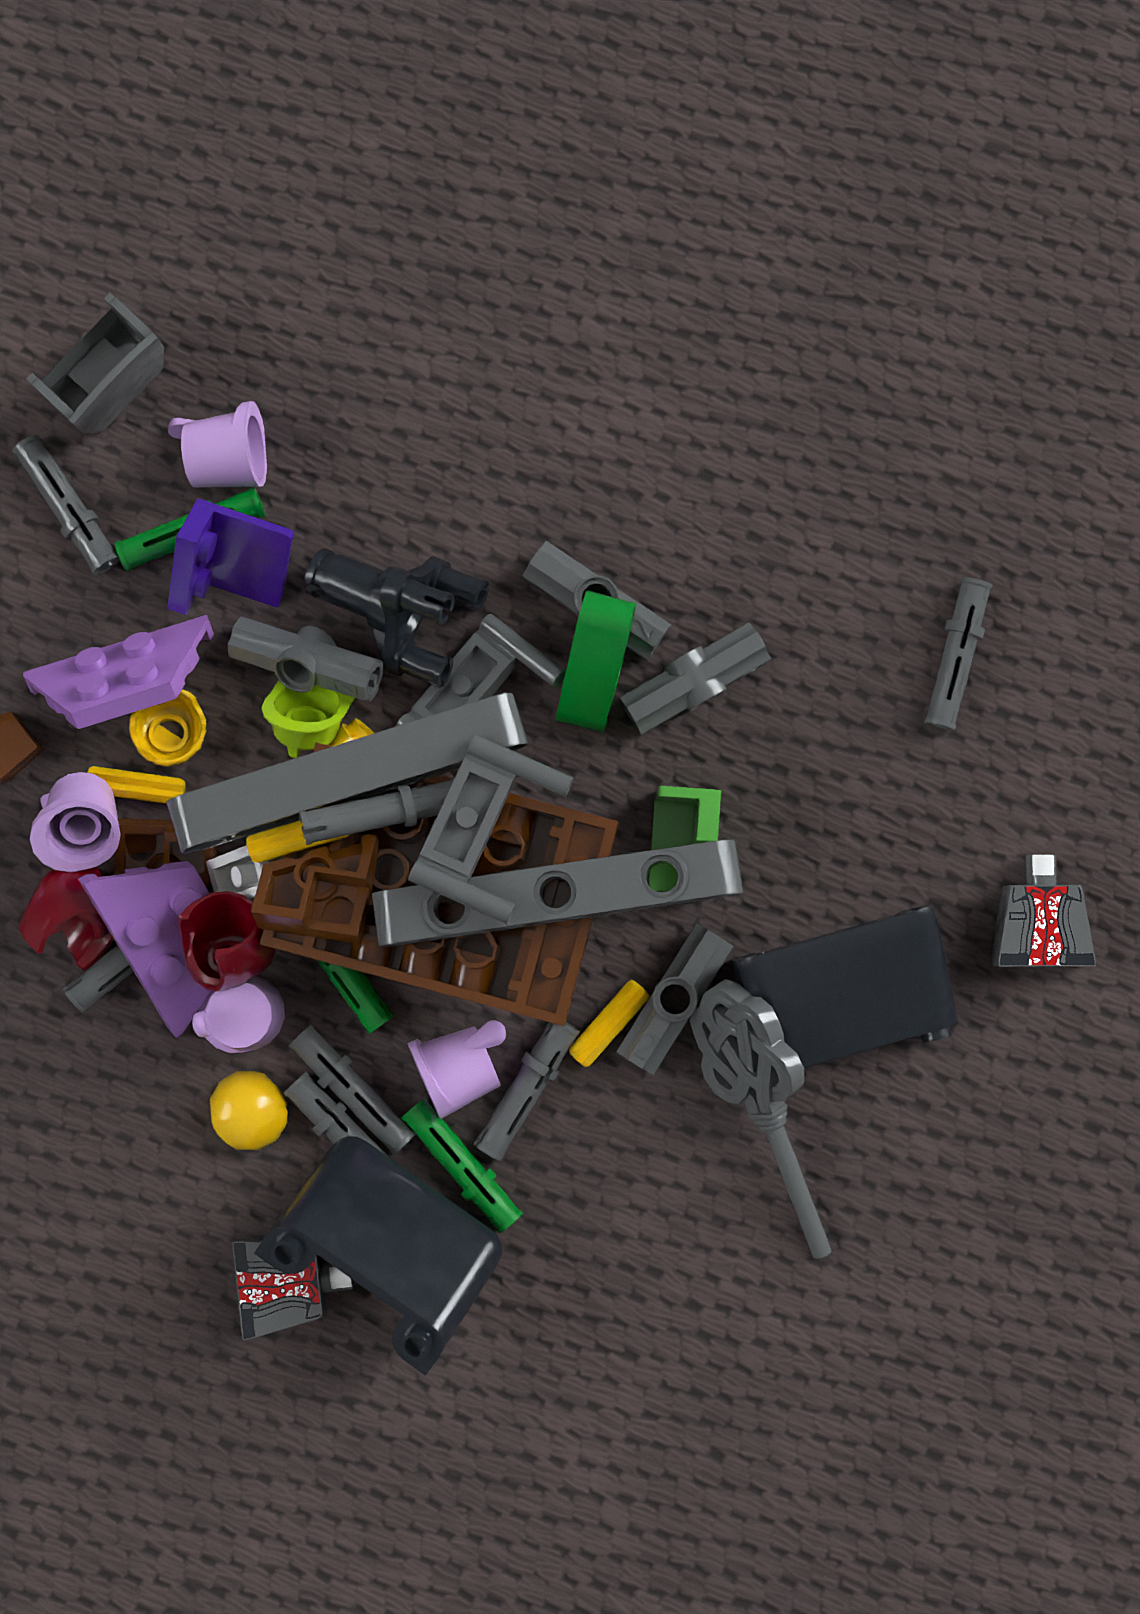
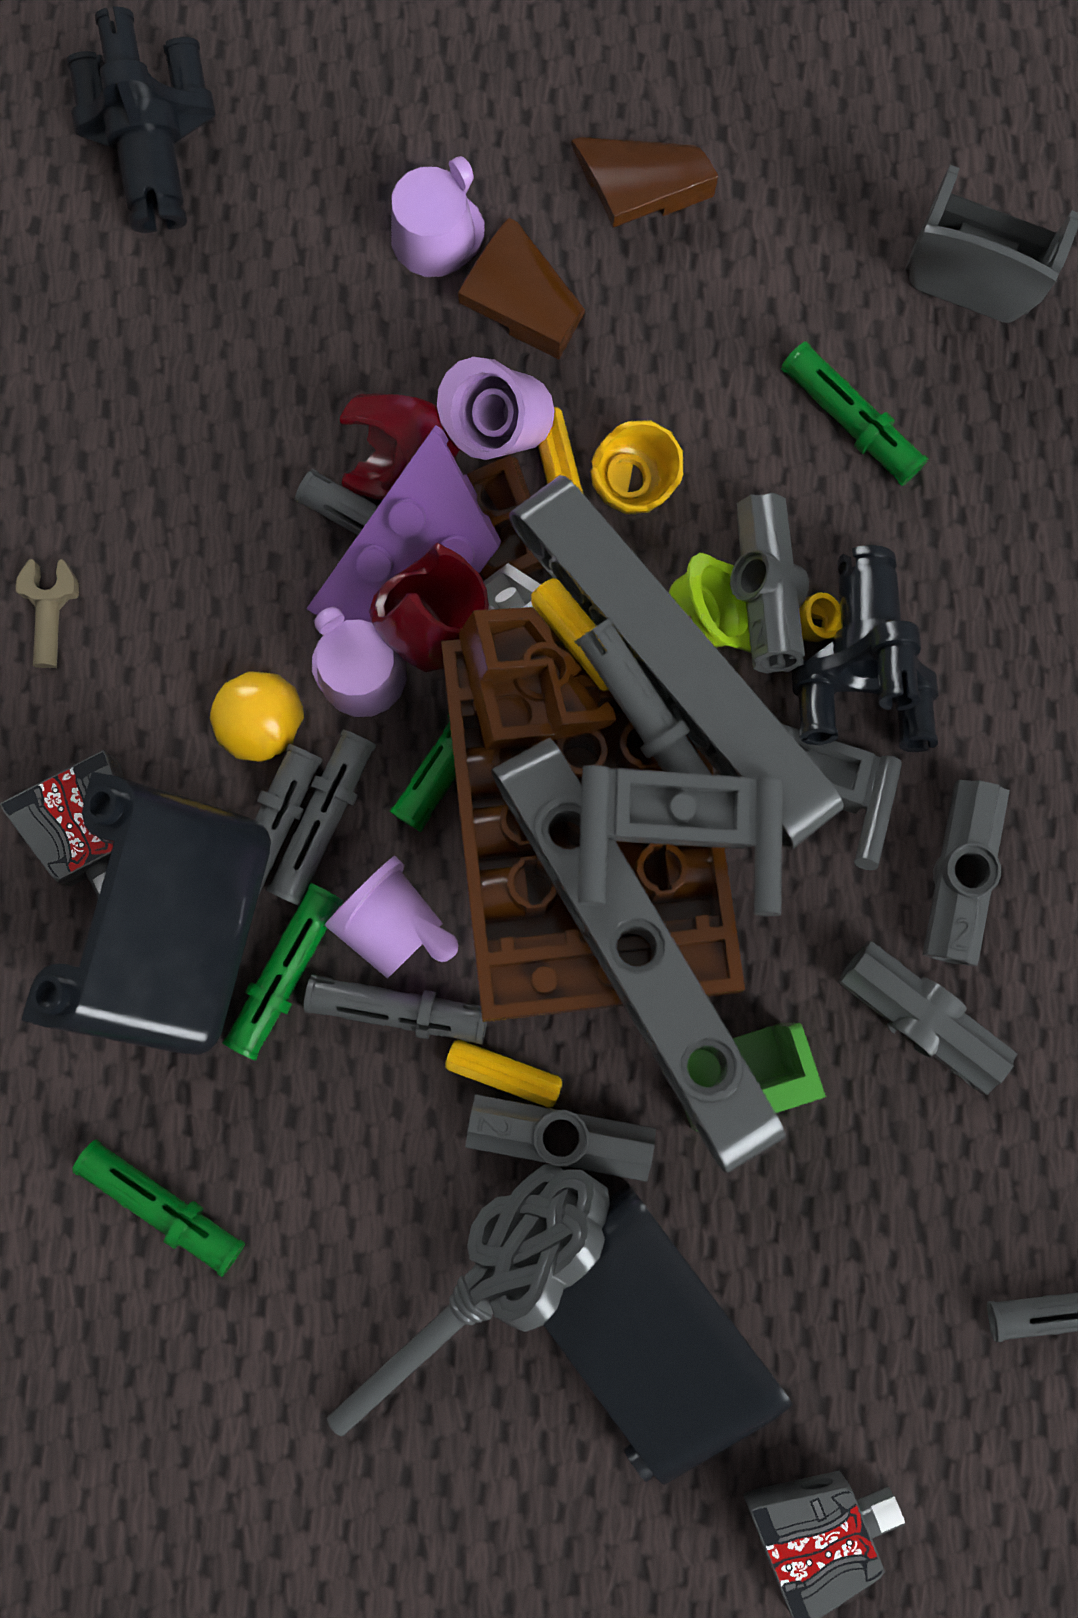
camera: 70 degrees right, 5 degrees down
(89, 1248) = (47, 608): none -> dark tan bar
(96, 552) = (789, 325): dark grey pin -> none
(123, 675) = (671, 402): medium lavender wing -> none
(223, 448) = (957, 412): lavender hat -> none
(228, 553) = (848, 455): dark purple bracket -> none
(339, 624) = (821, 607): none -> yellow hinge
(595, 661) = (904, 896): green beam -> none
(624, 1316) = (158, 1207): none -> green pin

